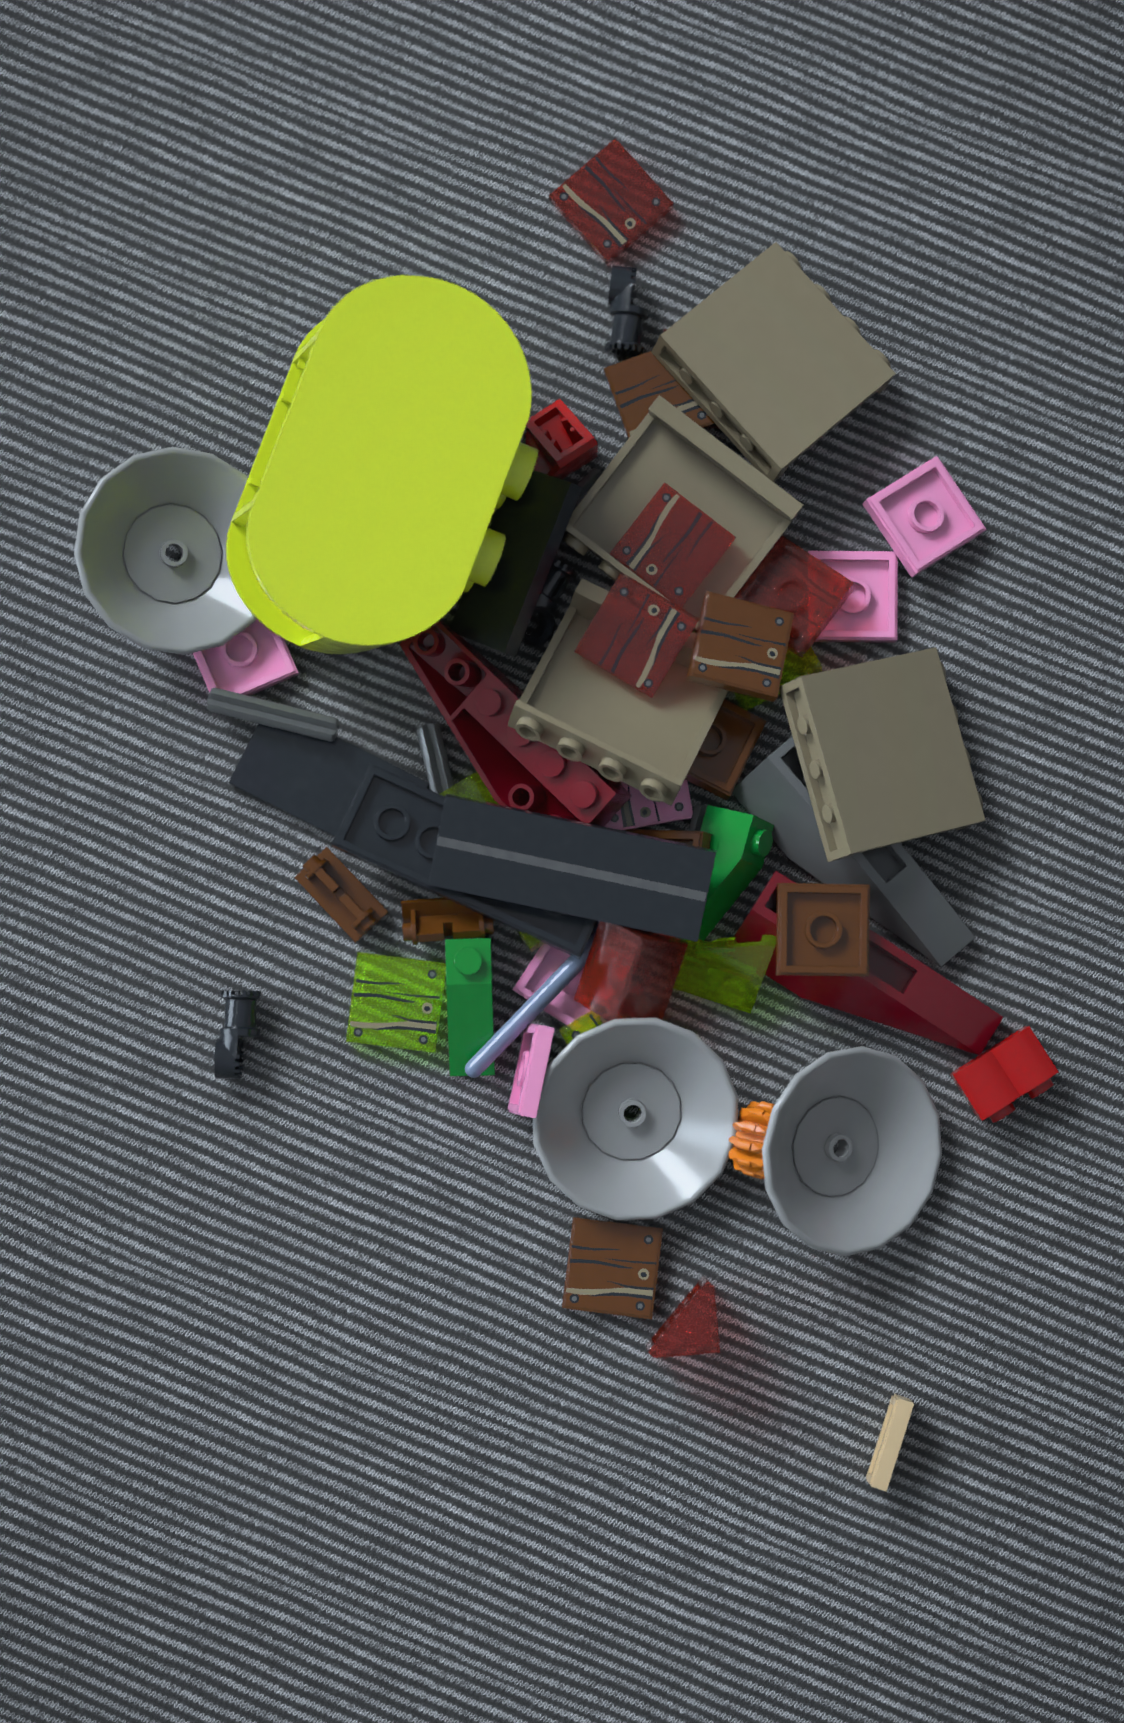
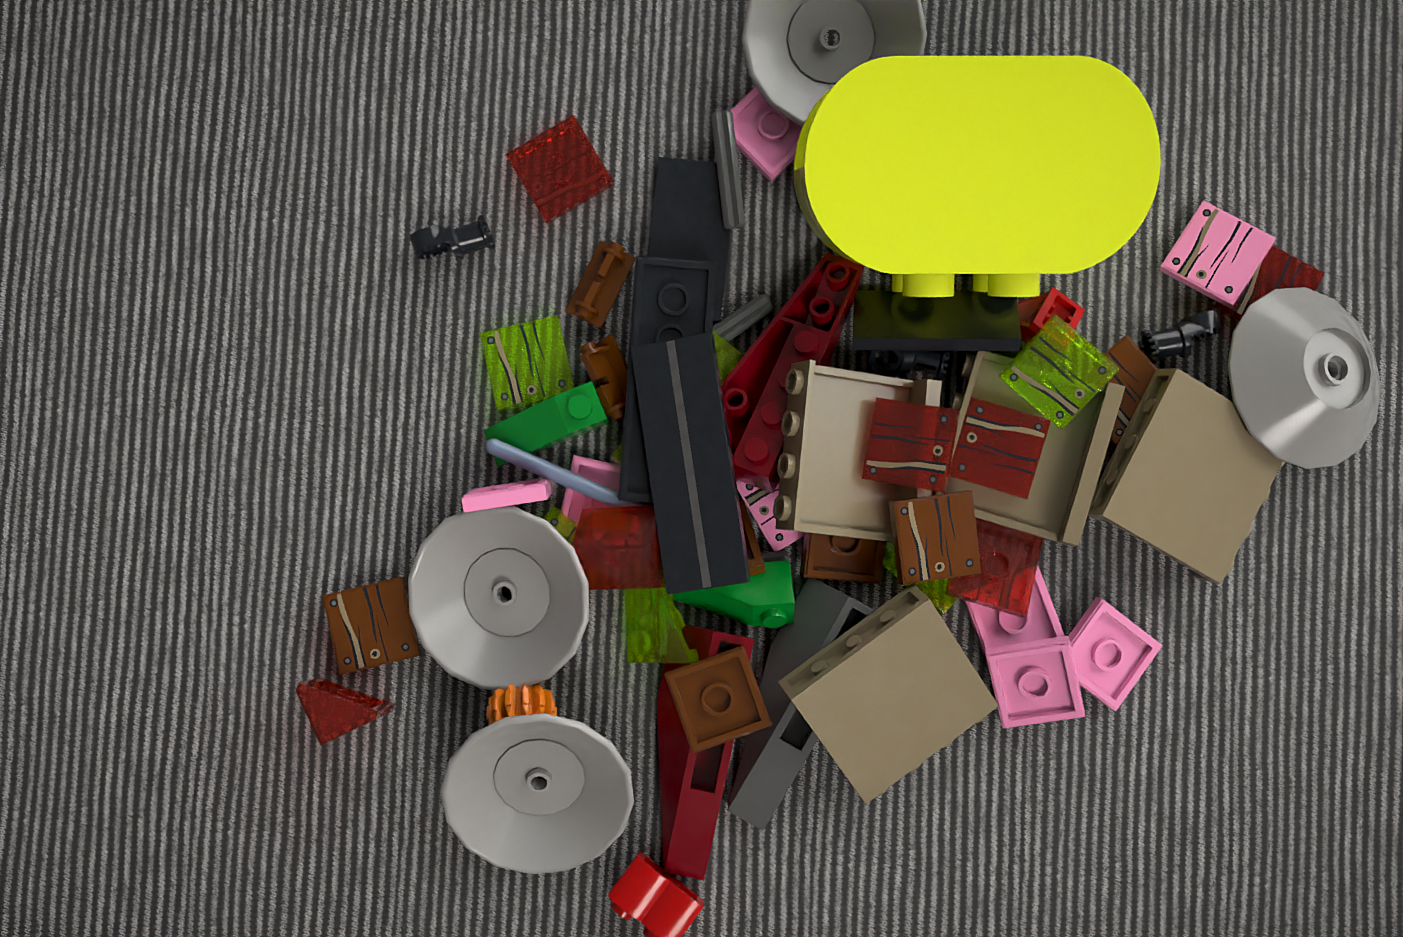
camera: 65 degrees right, 0 degrees up
(201, 892) = (560, 169): none -> clear red tile
(554, 241) = (1217, 254): none -> bright pink tile
(618, 455) = (1058, 371): none -> clear neon green tile
(710, 231) = (1304, 377): none -> light grey dish
(889, 1442) = (306, 916): tan tile -> none
(926, 600) = (1035, 682): none -> bright pink tile

